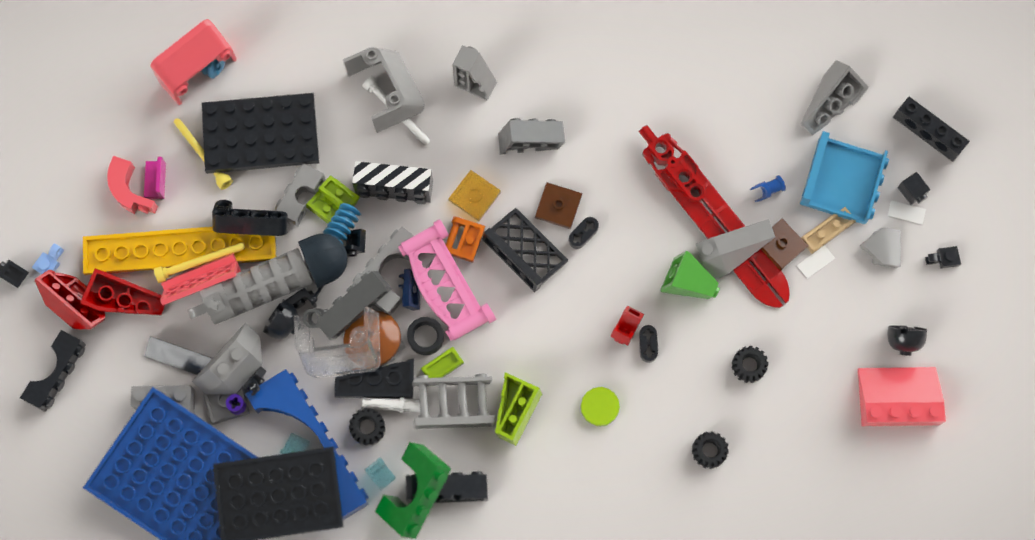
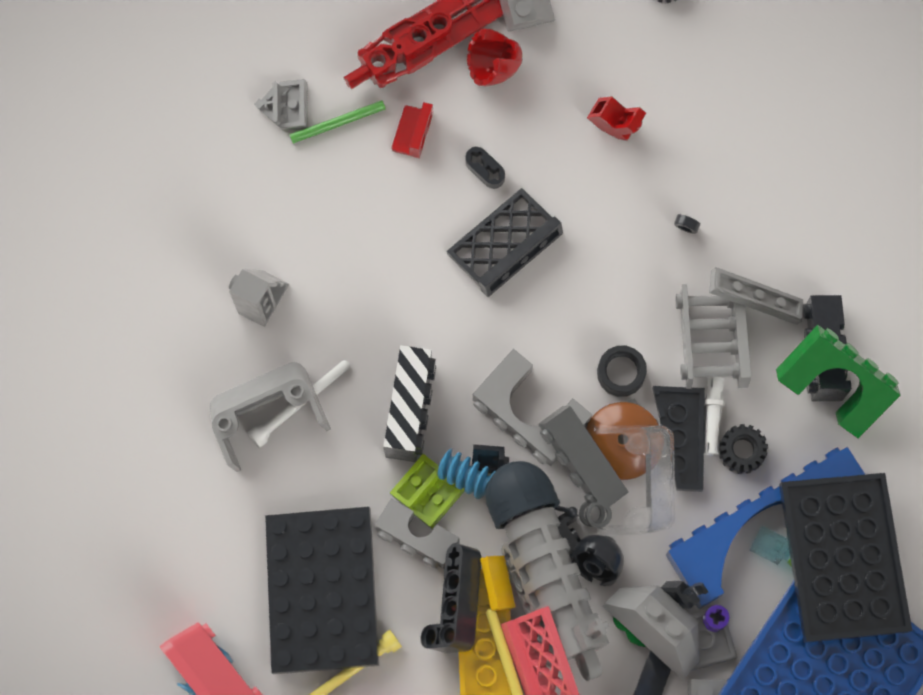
camera: 85 degrees left, 0 degrees up
(261, 248) = (497, 583): none -> yellow tile
(380, 474) = (805, 434): clear light blue panel -> none
(411, 292) = (563, 387): dark blue plate -> none
(431, 242) = (500, 351): bright pink piece -> none
(443, 364) = (660, 352): lime tile -> none
(469, 240) = (492, 311): orange plate -> none
(474, 195) = (426, 303): clear yellow tile -> none
(484, 432) = (756, 296): none -> light grey tile
(516, 408) = (715, 249): lime wedge -> none
(535, 134) = (349, 225): wedge -> none
(544, 382) = (687, 224): none -> black tile
(558, 205) = (446, 197): reddish brown plate -> none
(600, 406) = (717, 159): lime tile -> none
(610, 179) = (412, 130): none -> red panel
(614, 125) = (337, 121): none -> bright green bar
(626, 88) = (286, 104): none -> light grey slope
(643, 343) = (636, 95): black beam -> none
(669, 233) = (493, 57): none -> red hair
(689, 278) = (552, 42): bright green slope -> none
(701, 458) = (781, 20): black tyre -> none

